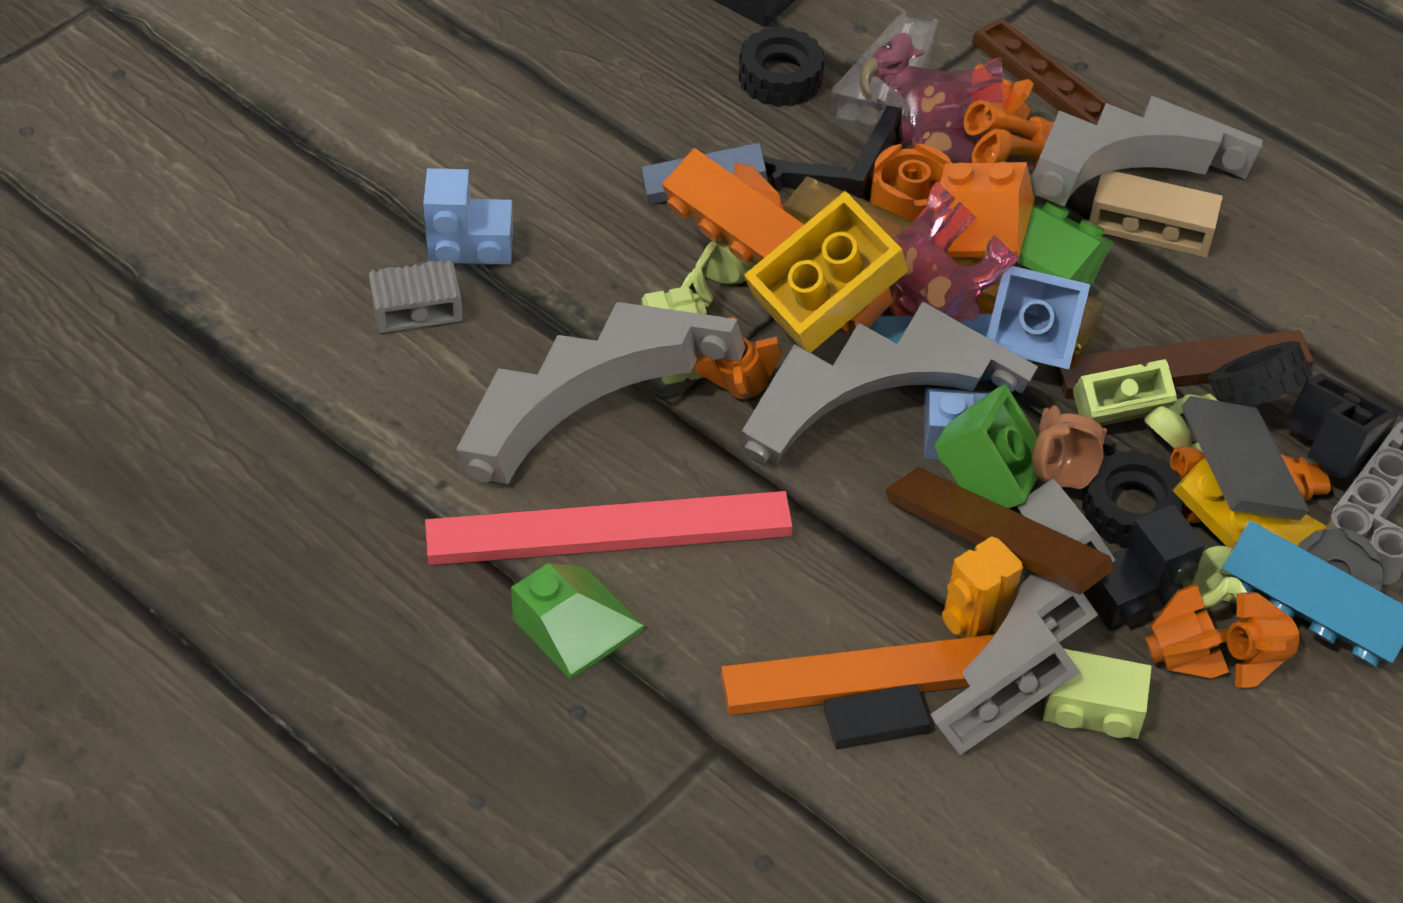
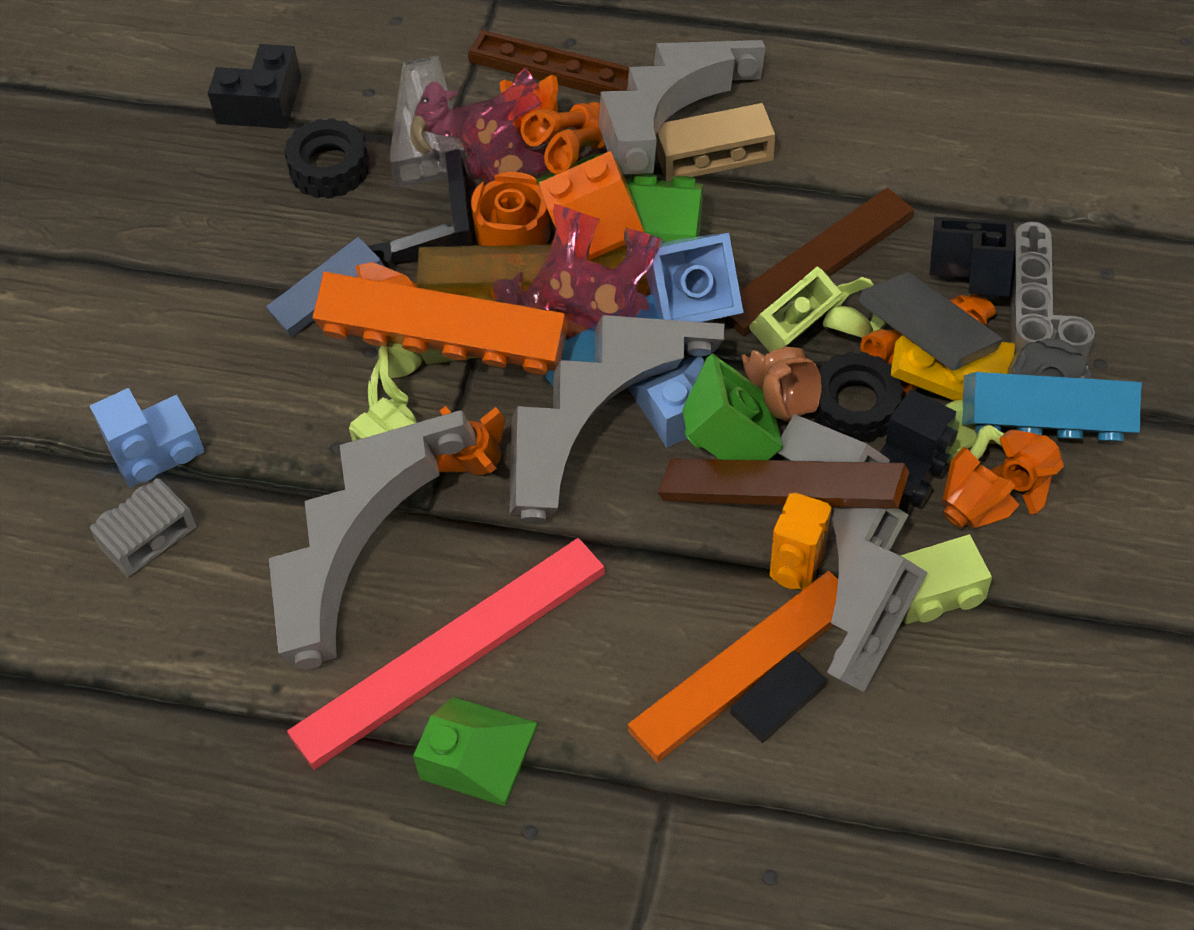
camera: 25 degrees left, 5 degrees up
(826, 272) = (513, 330): yellow brick -> none
(1261, 375) = (892, 242): black tyre -> none

